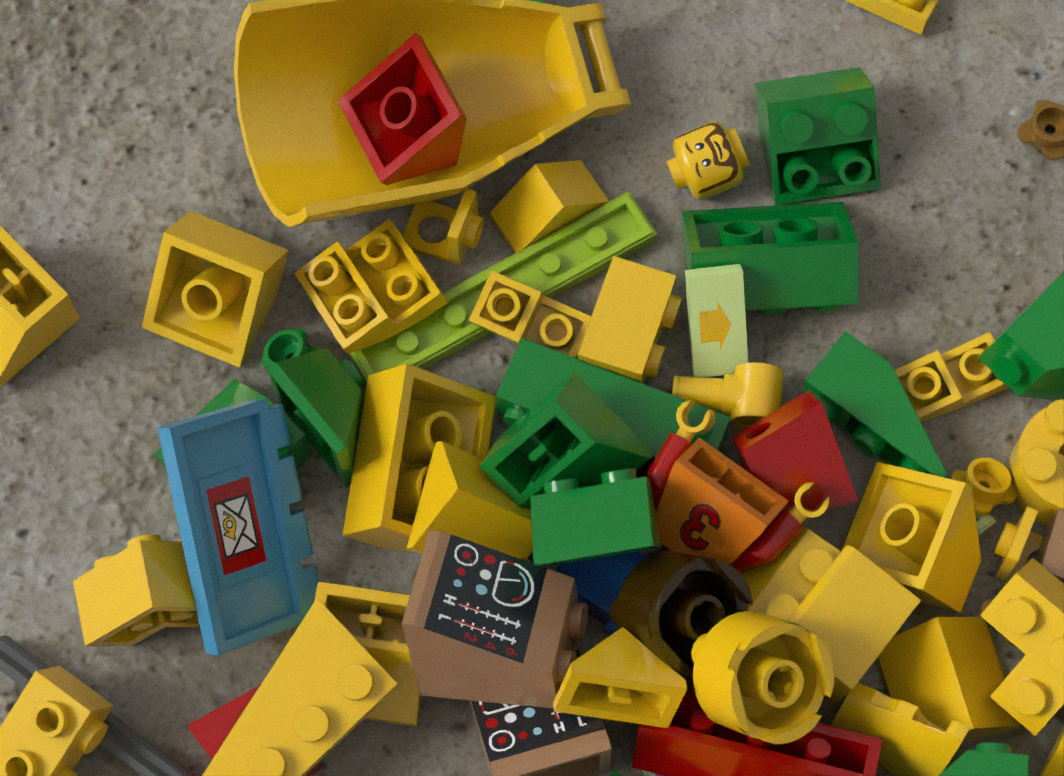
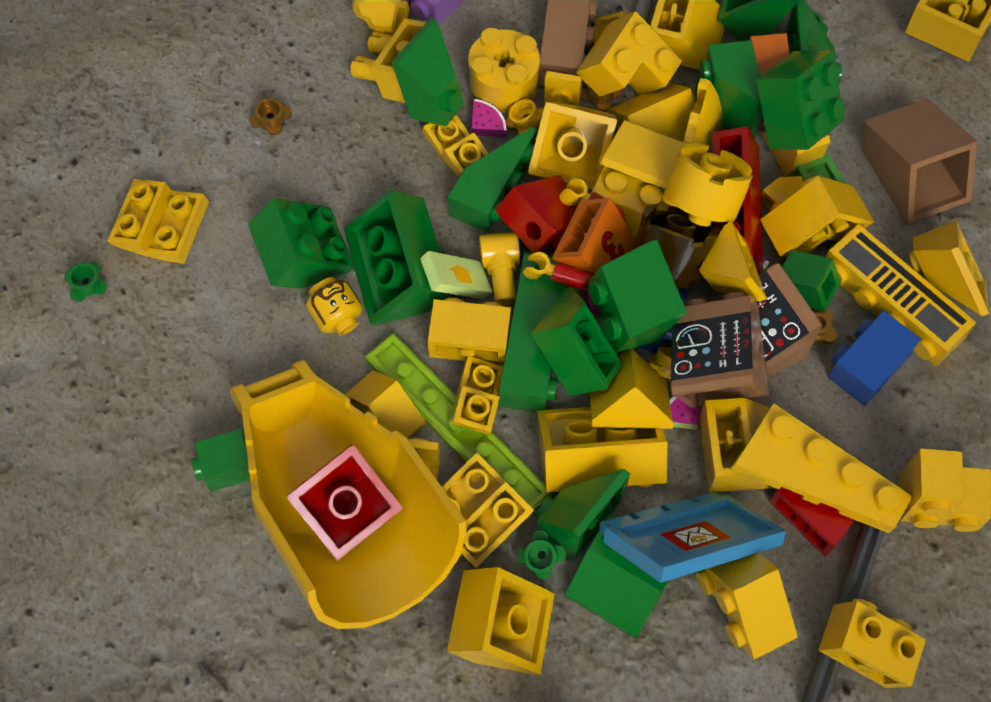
camera: 105 degrees left, 5 degrees down
(992, 431) = (488, 120): none -> dark pink tile

